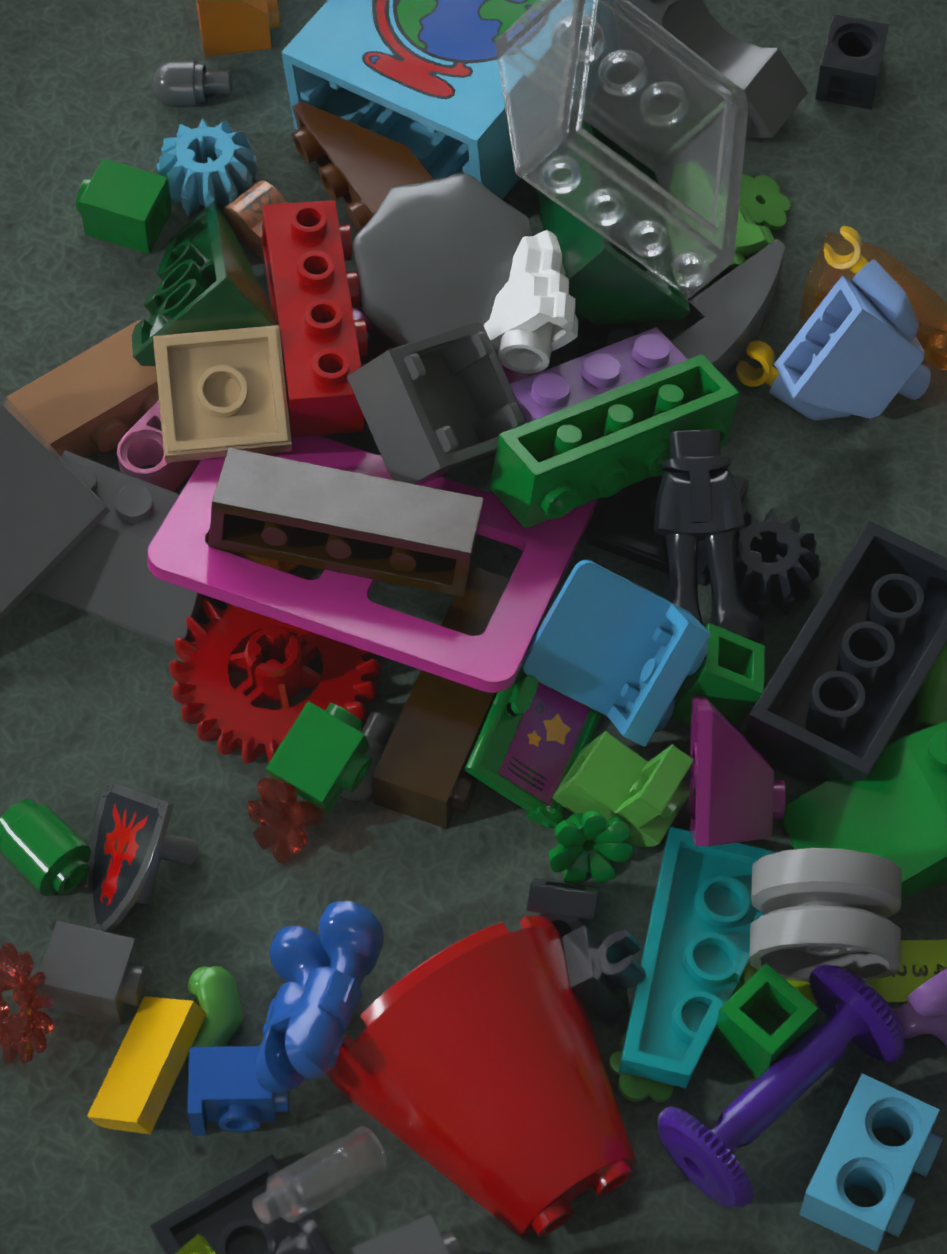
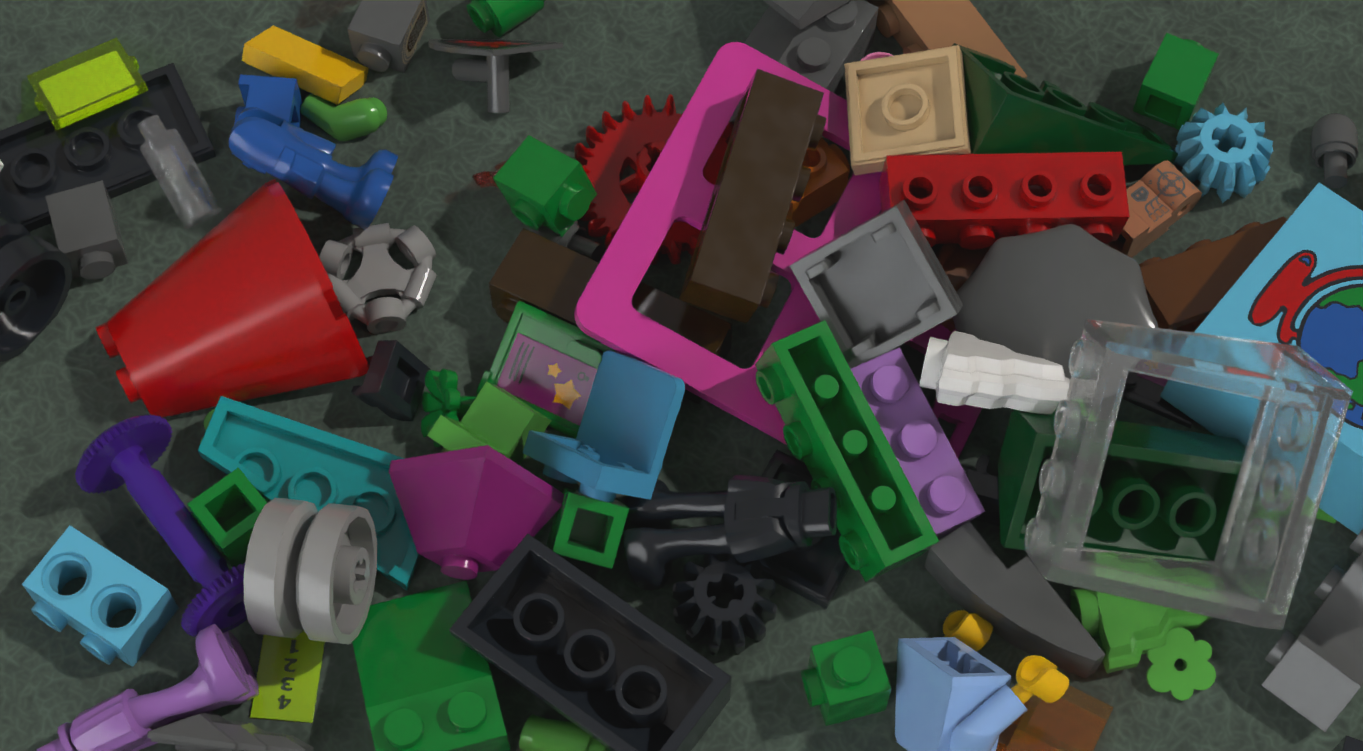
camera: 95 degrees right, 5 degrees up
(427, 932) = (381, 275): none -> light grey piece
(603, 969) = (315, 394): black tile -> none
(831, 448) = (846, 678): none -> green brick

